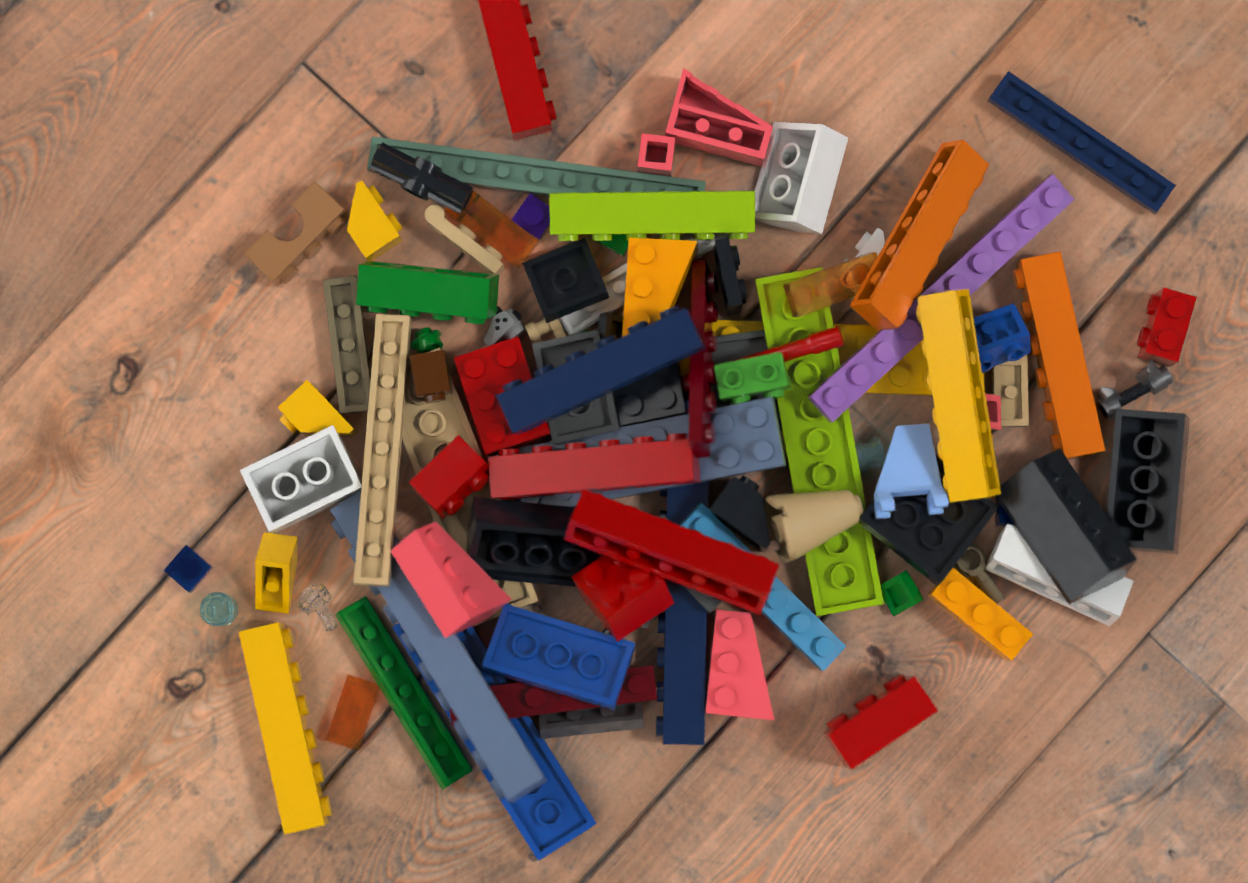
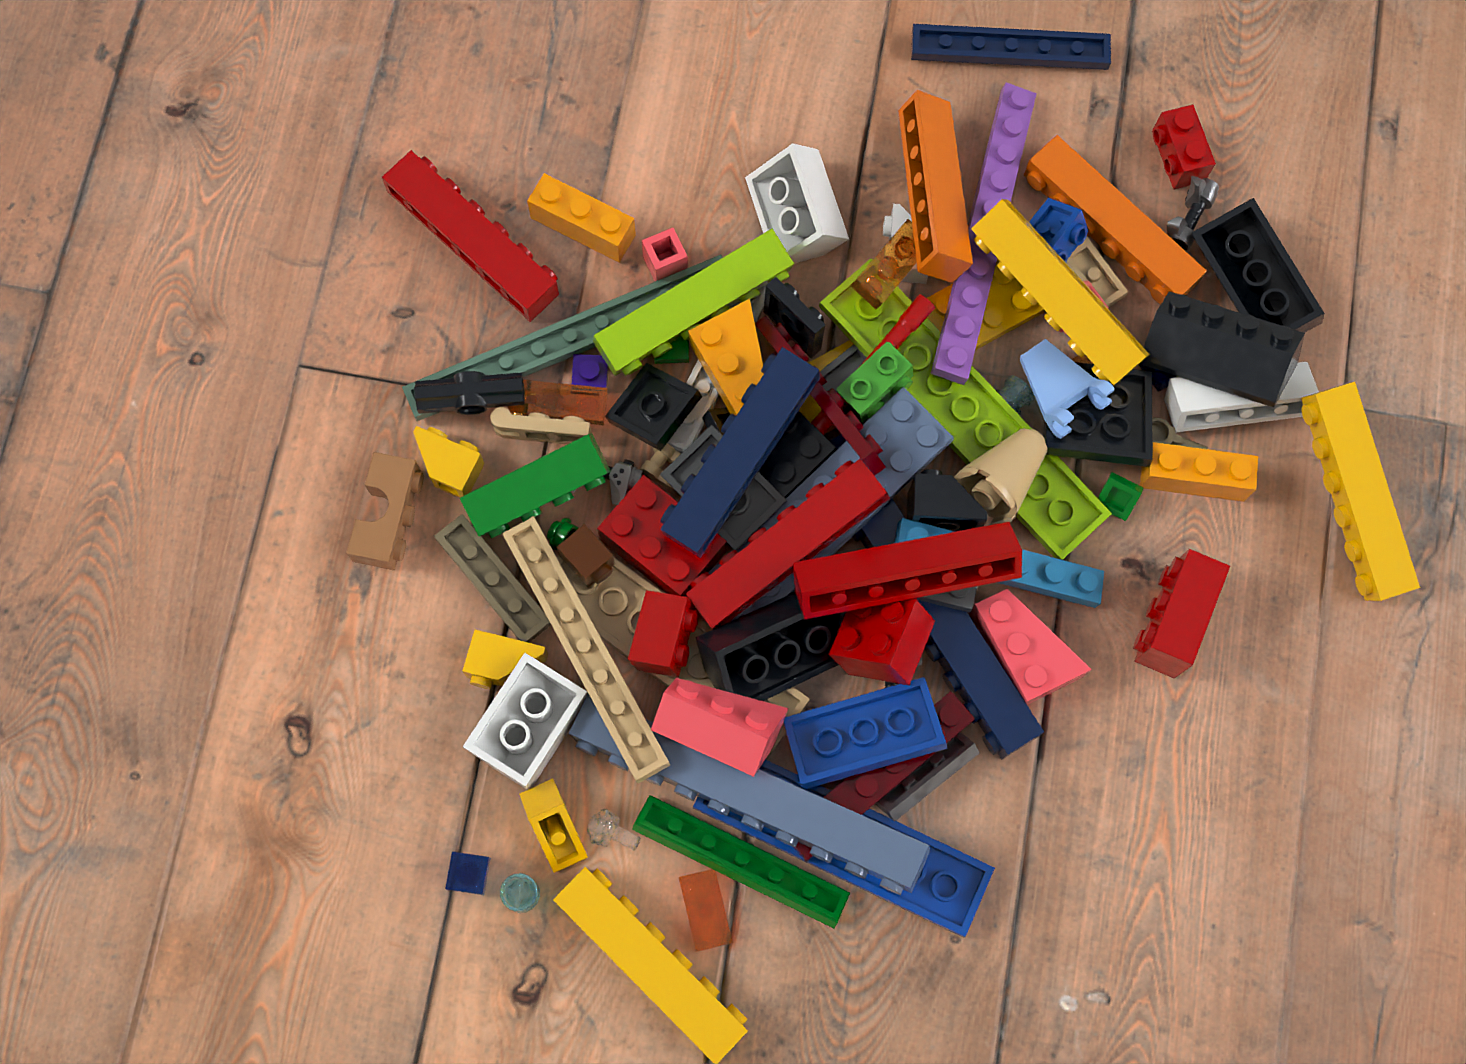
camera: 40 degrees left, 10 degrees down
(609, 77) = (581, 217): none -> light orange brick
(715, 124) = (701, 200): coral wedge -> none
(1096, 715) = (1359, 492): none -> yellow brick

